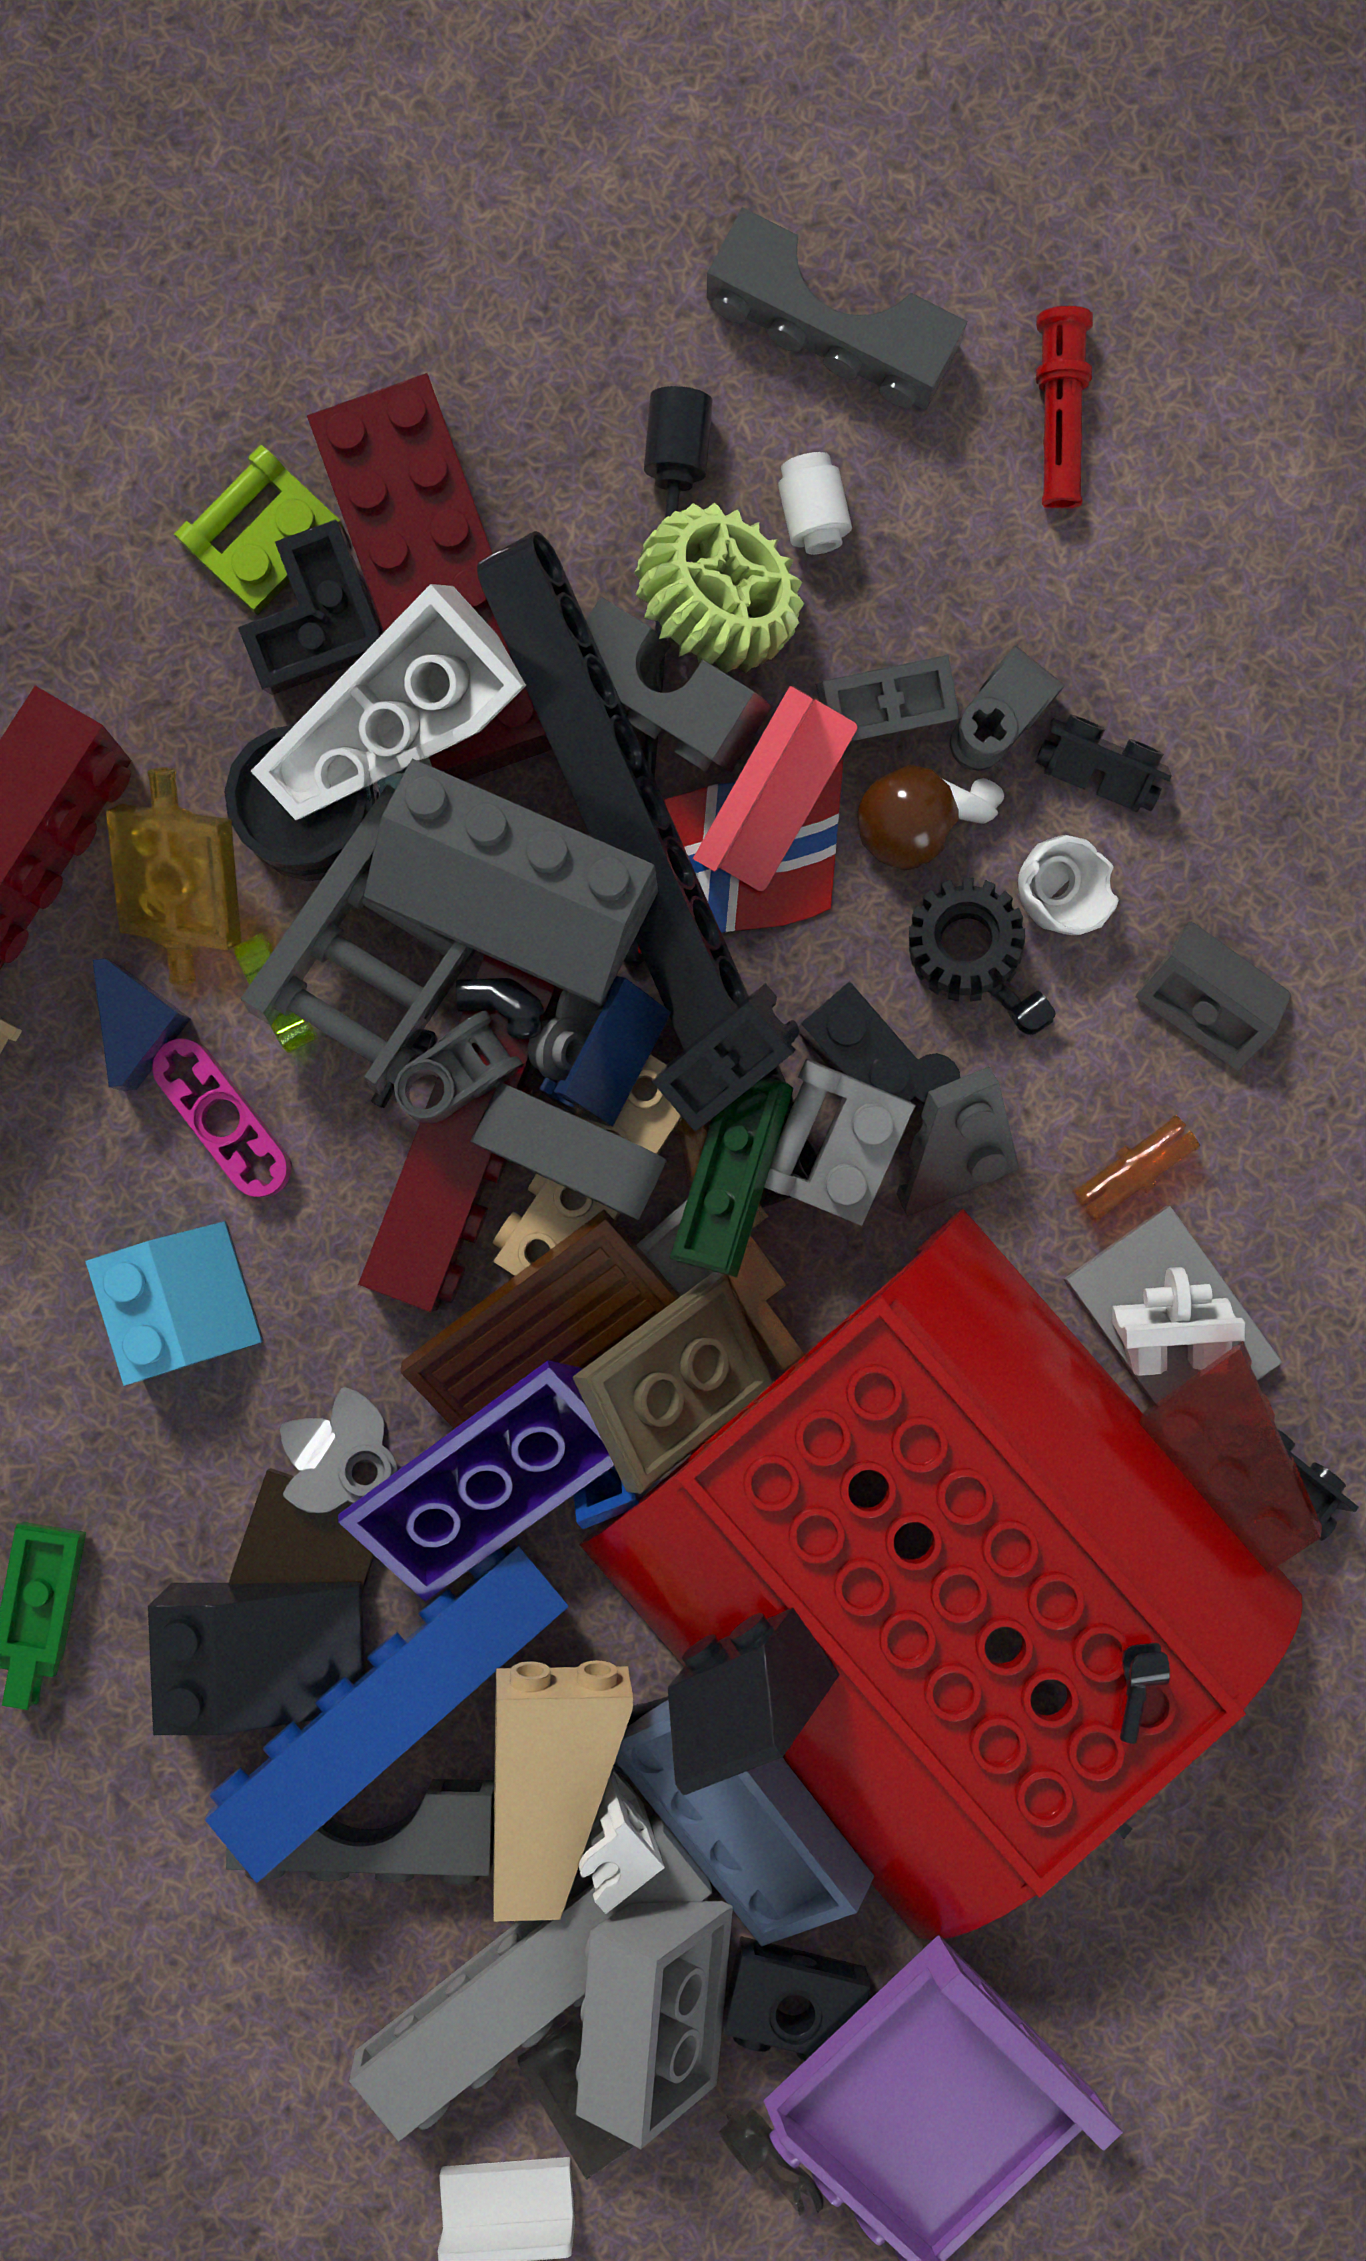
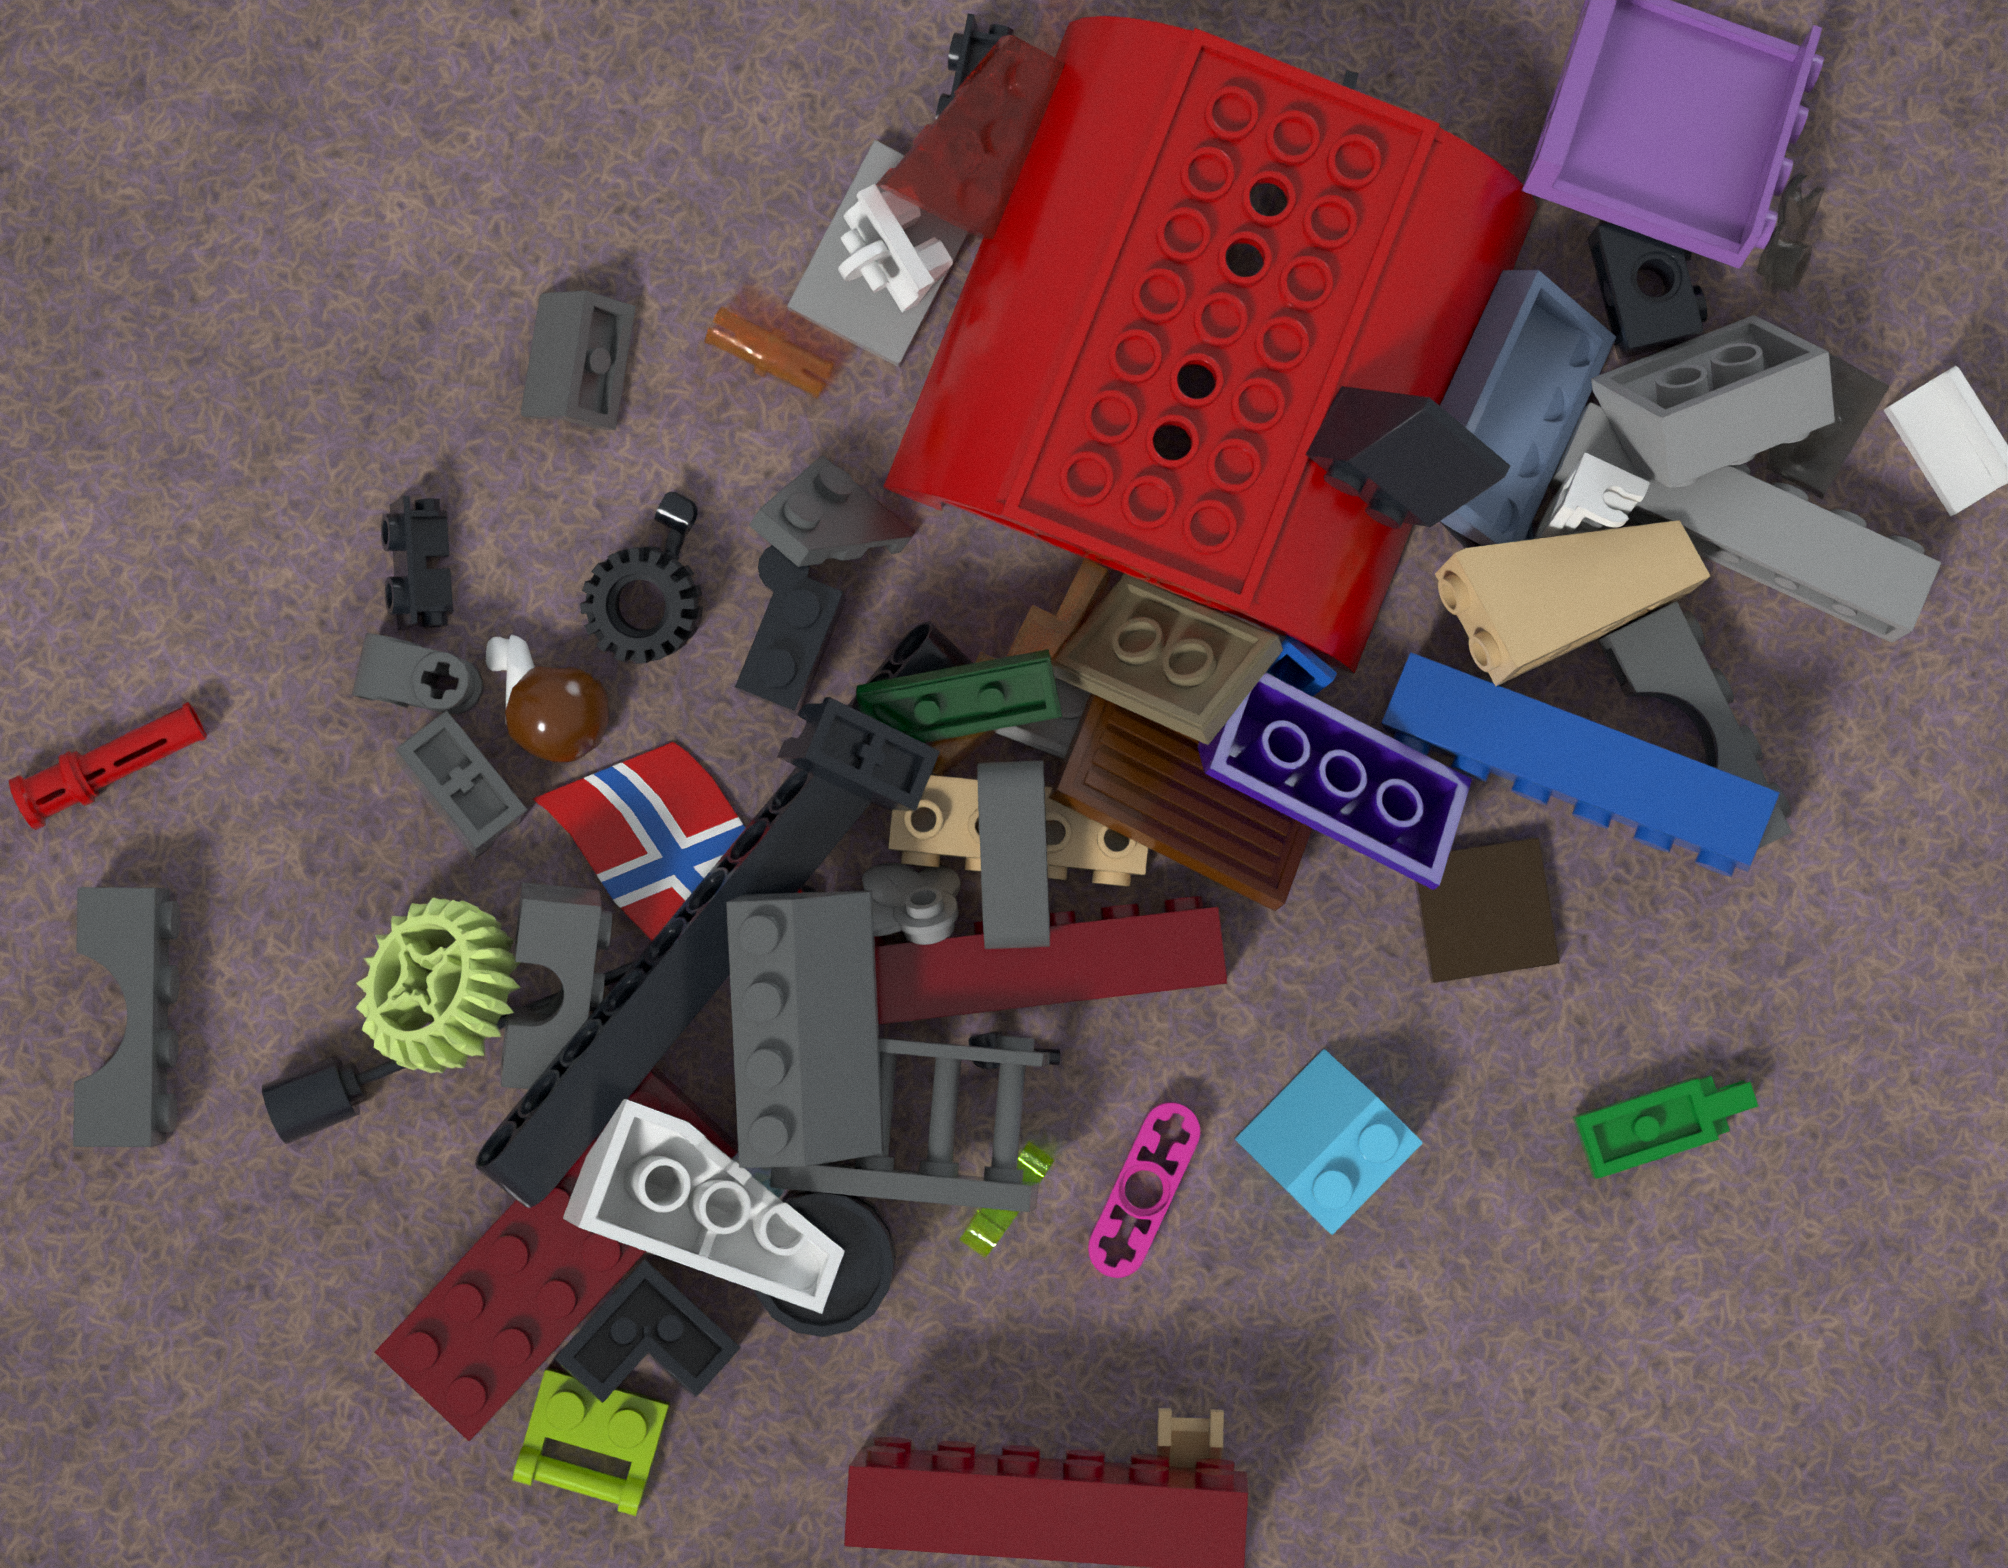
camera: 120 degrees left, 0 degrees up
(132, 1024) = (1098, 1310): dark blue slope -> none
(174, 876) = (949, 1341): clear yellow plate -> none
(250, 1653) = (1597, 909): black slope -> none
(331, 1450) = (1387, 935): light grey plate -> none
(459, 1069) = (989, 989): dark grey piece -> none
(507, 998) = (906, 982): black arm -> none
(611, 1055) = (910, 860): dark blue hinge -> none
(776, 789) = (594, 840): coral panel -> none
(814, 503) = (311, 943): white brick -> none
(853, 1150) = (883, 606): light grey plate -> none
(1088, 897) = (553, 516): white hair -> none
(1142, 1667) = (1200, 133): black hand -> none

